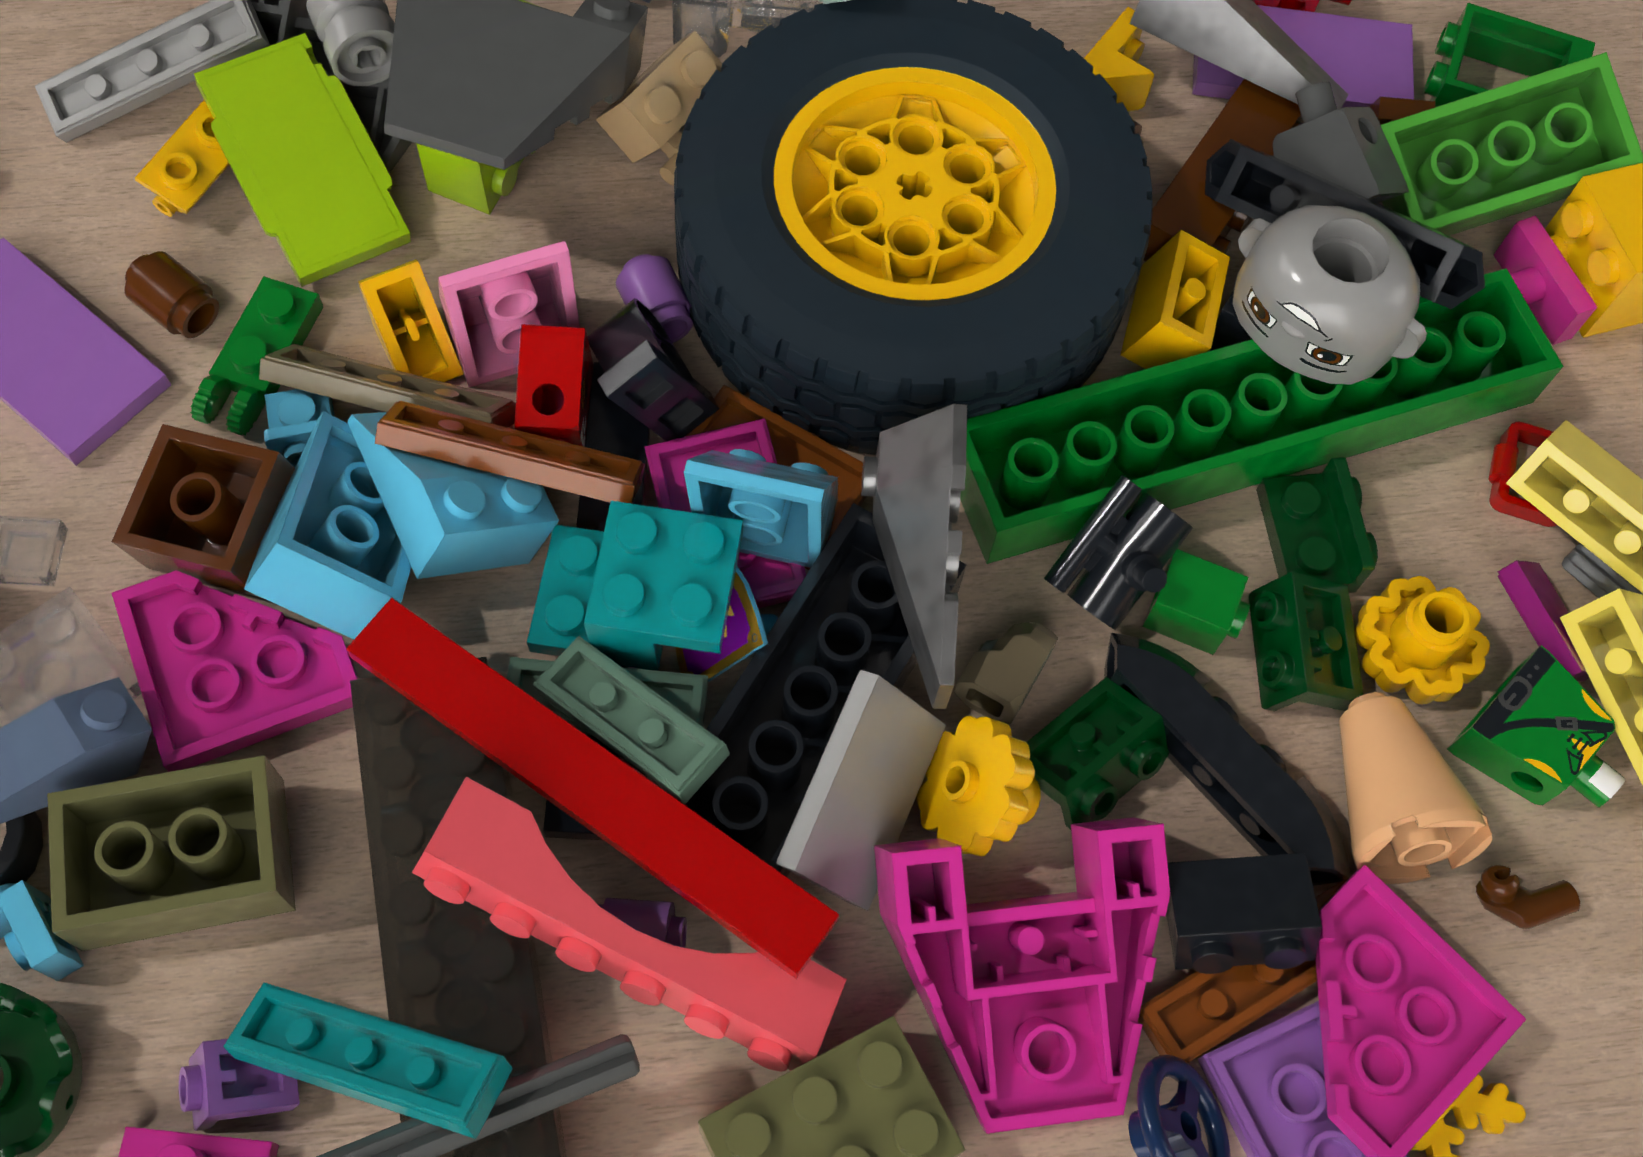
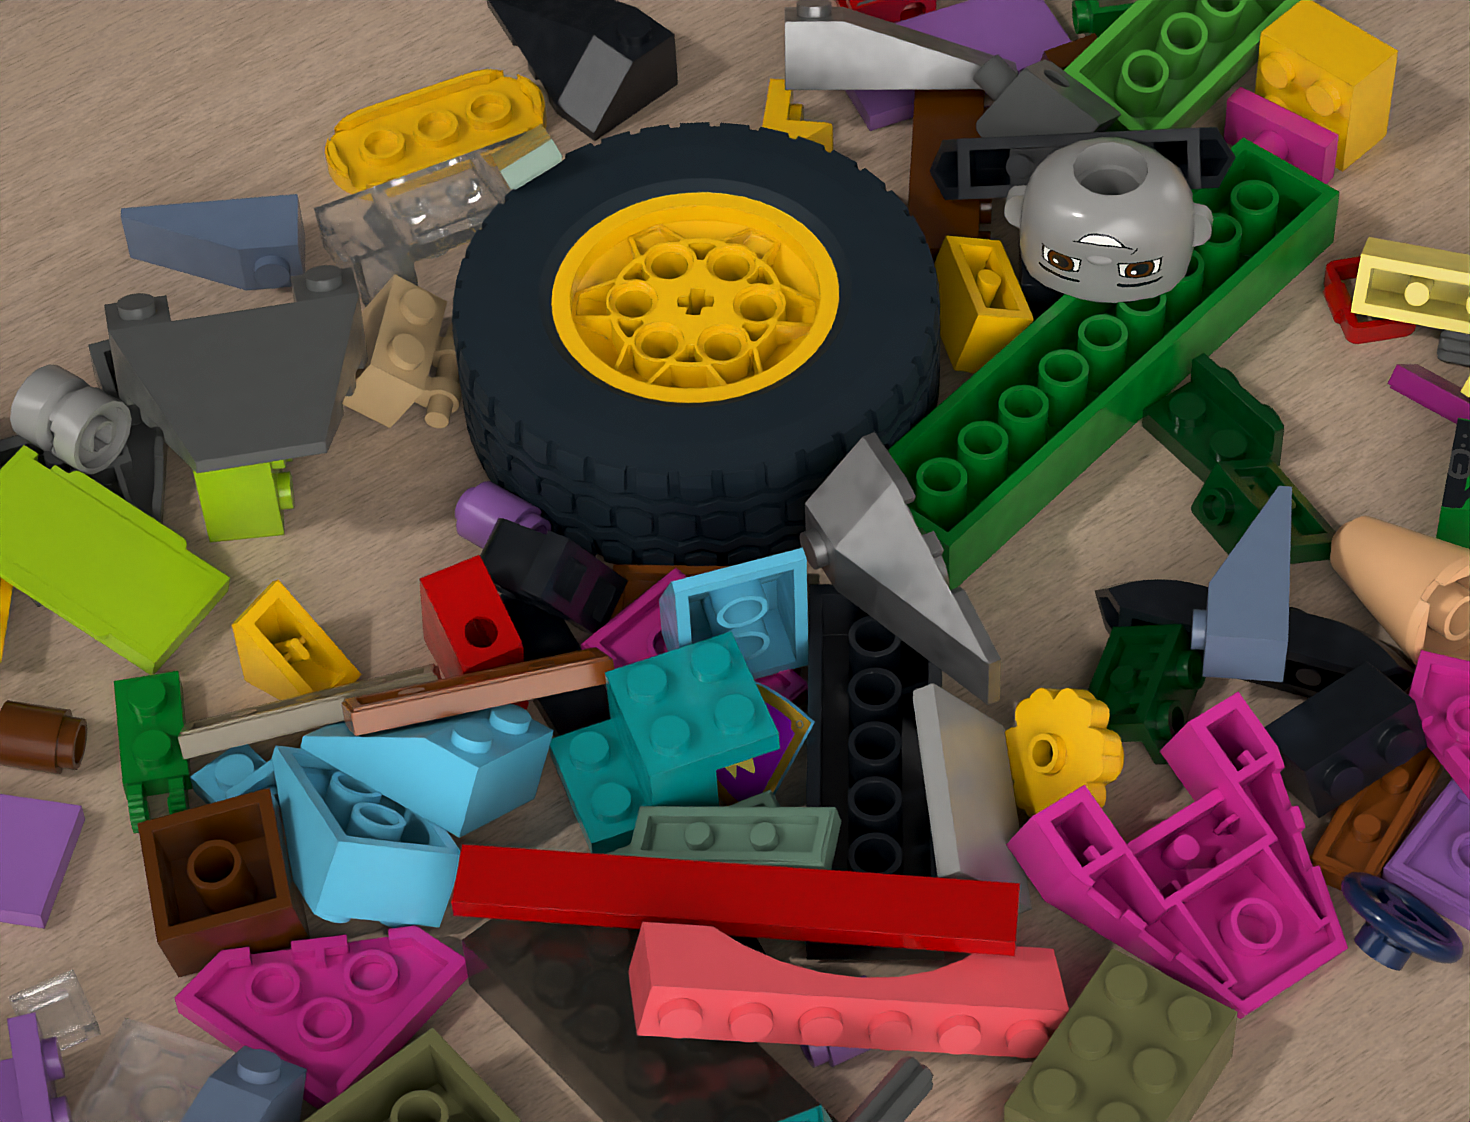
camera: 20 degrees left, 15 degrees down
(494, 299) = (374, 589): bright pink slope -> none
(1005, 671) = (1026, 659): dark tan rock -> none
(1119, 553) = (1063, 518): black pin -> none
(1198, 603) = (1152, 532): green brick -> none
(1230, 735) = (1249, 601): none -> sand blue slope
(1421, 640) = (1358, 467): yellow plant -> none

